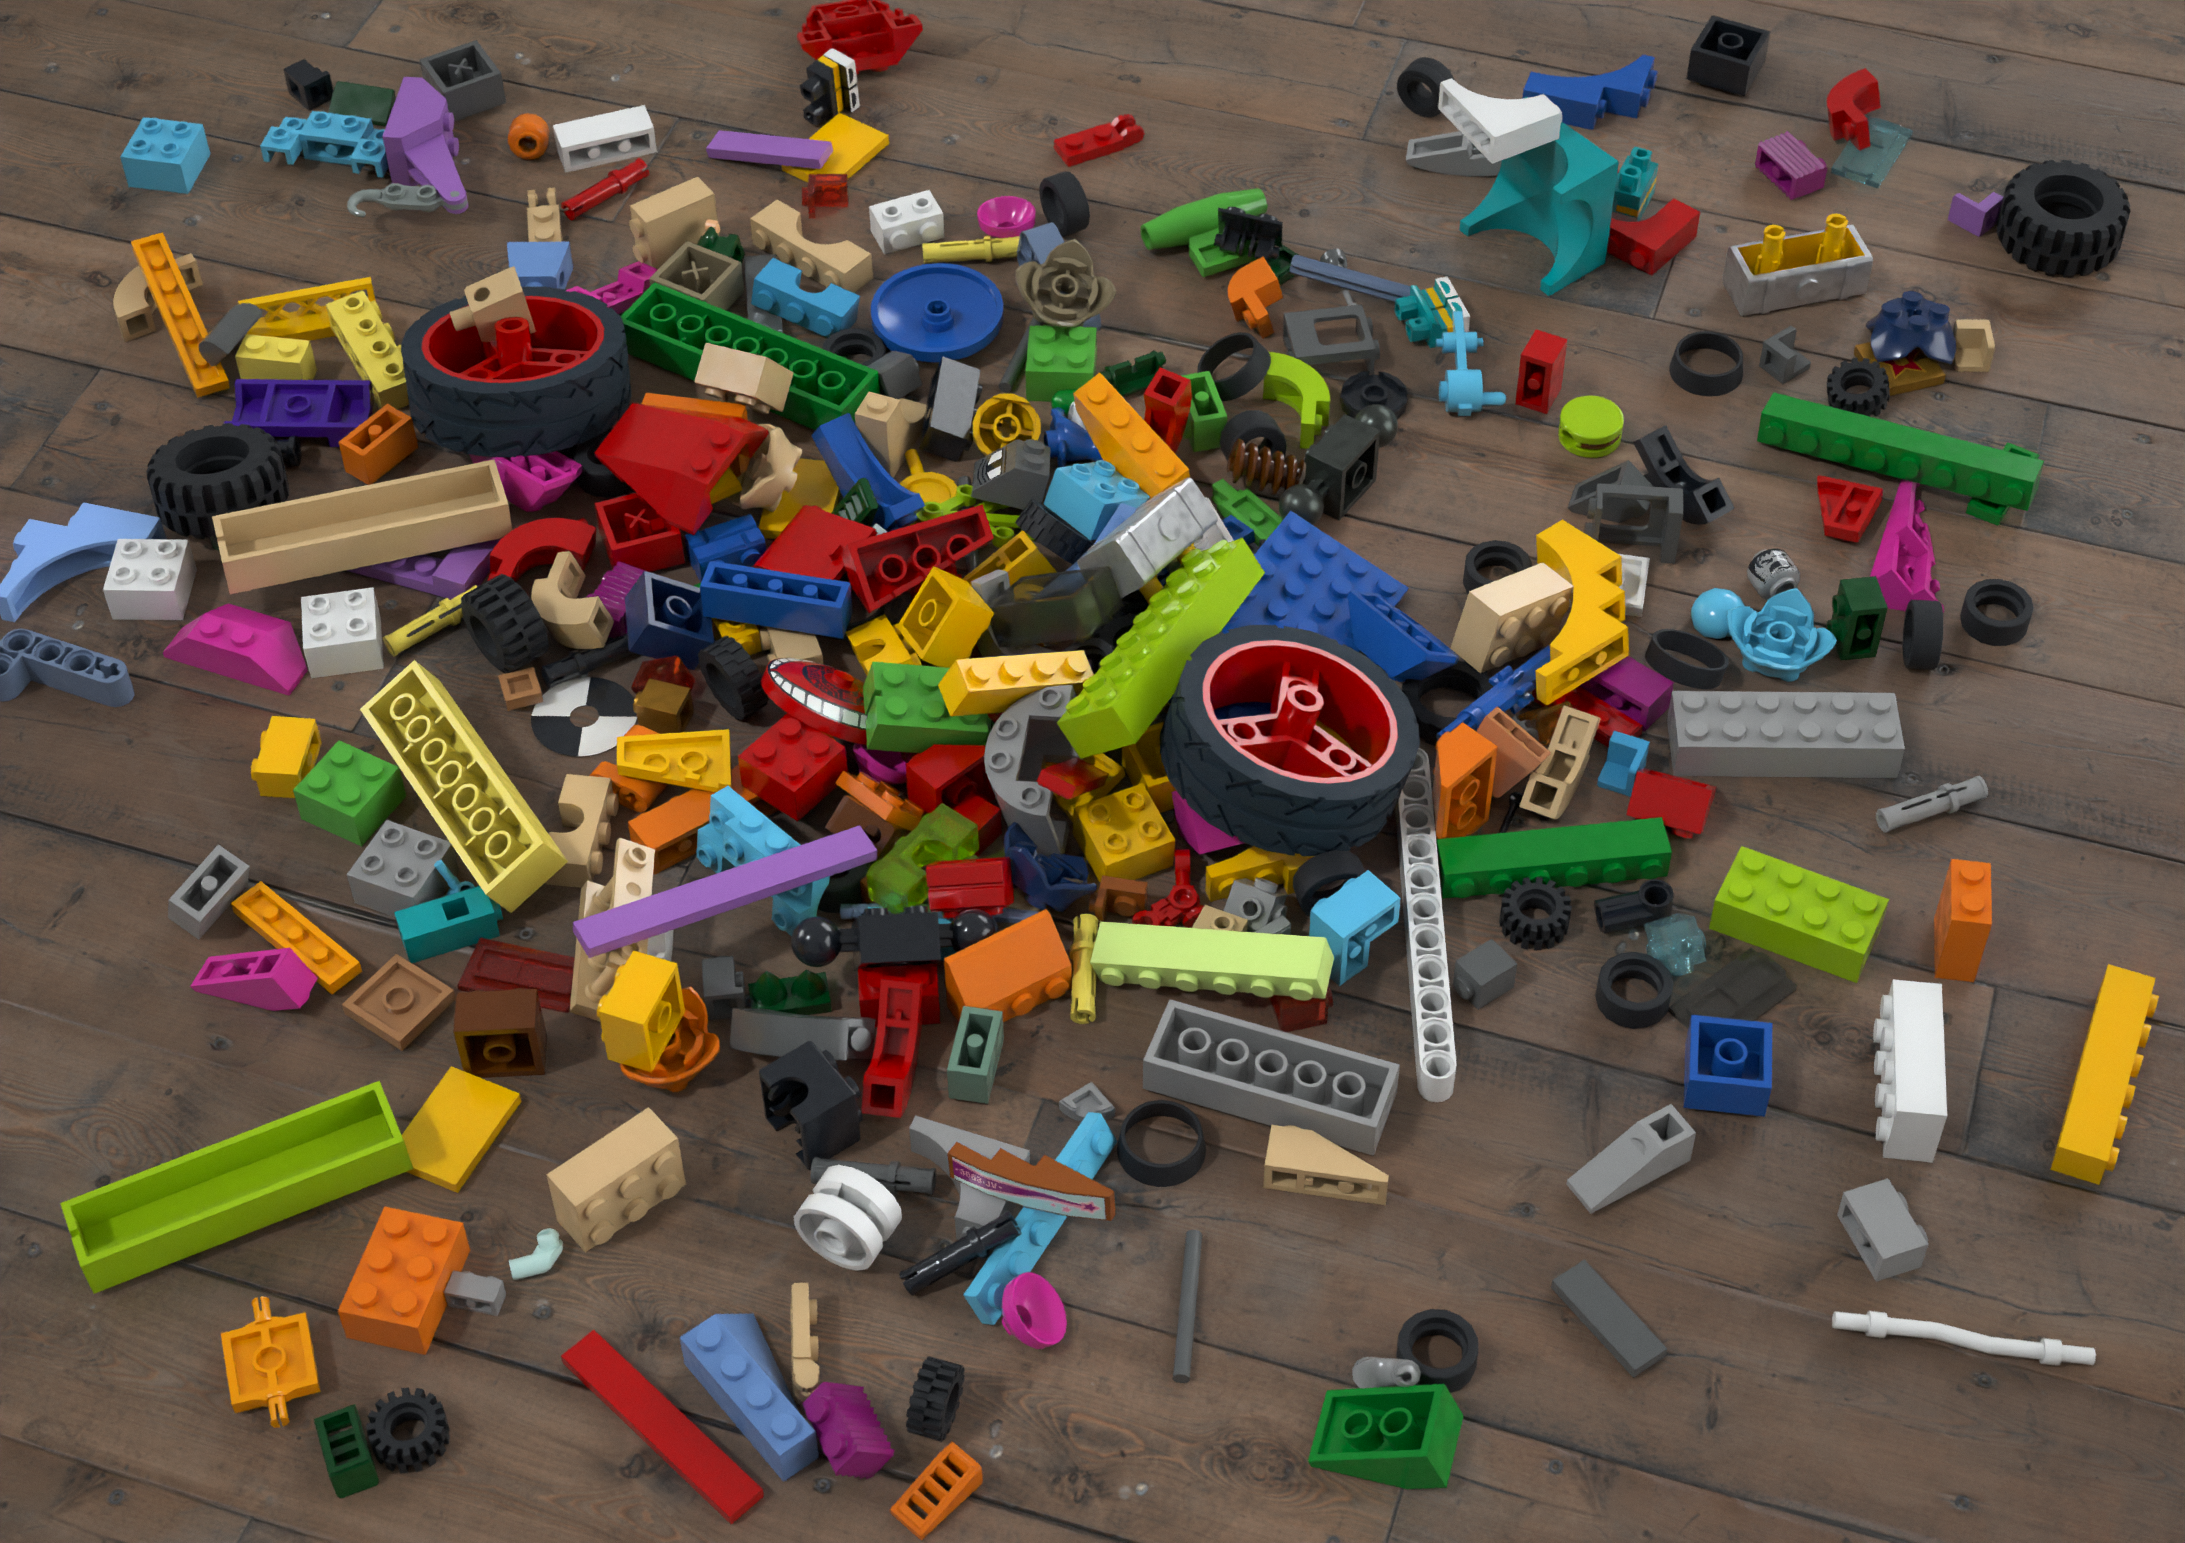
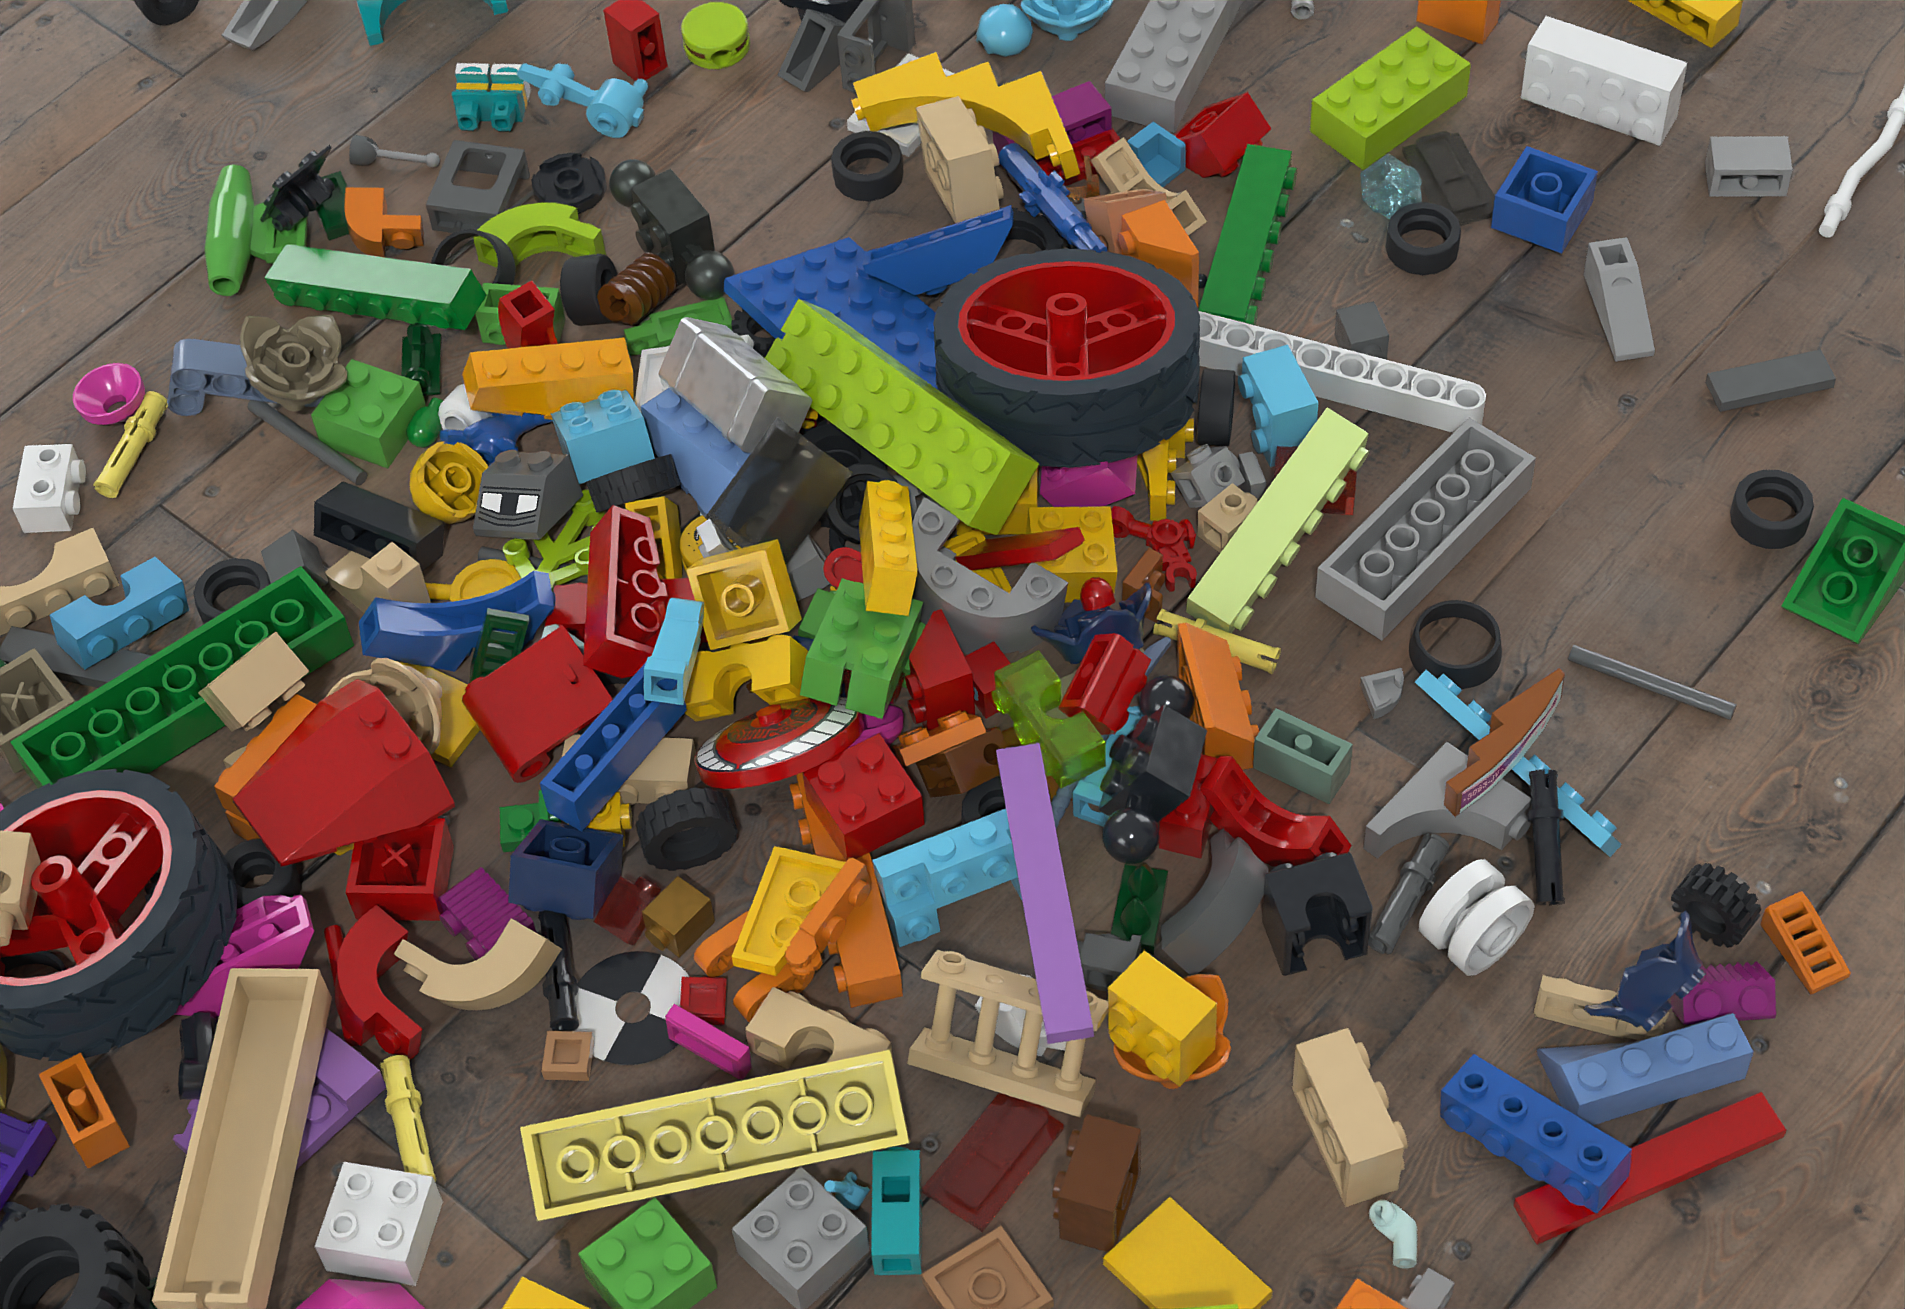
camera: 65 degrees left, 5 degrees up
(504, 623) = (484, 1033): black tyre -> none
(557, 762) = (708, 1042): none -> dark pink tile
(597, 749) = (704, 998): none -> red tile
(650, 1321) = (1535, 1134): none -> blue brick
(670, 781) = (827, 918): none -> orange hinge
(729, 542) = (471, 782): blue brick -> none
(804, 1352) = (1655, 978): none -> dark blue brick
(860, 591) = (674, 651): none -> medium azure leg
(937, 312) = (222, 496): blue dish -> none
(1039, 1307) = (1633, 803): dark pink piece -> none
(1064, 203) = (130, 315): black tyre -> none
(1082, 863) = (1096, 594): none -> red hinge
(1099, 140) = (30, 288): red hinge -> none
(1174, 313) = (376, 286): none -> brick
(1313, 1165) = (1534, 529): tan slope -> none
(1348, 278) = (402, 141): sand blue axle -> none
(1384, 1372) = (1782, 558): light grey piece -> none
(1535, 930) = (1303, 261): black tyre -> none
(1635, 907) = (1332, 204): black piece -> none
(1681, 671) = (1065, 77): black tyre -> none

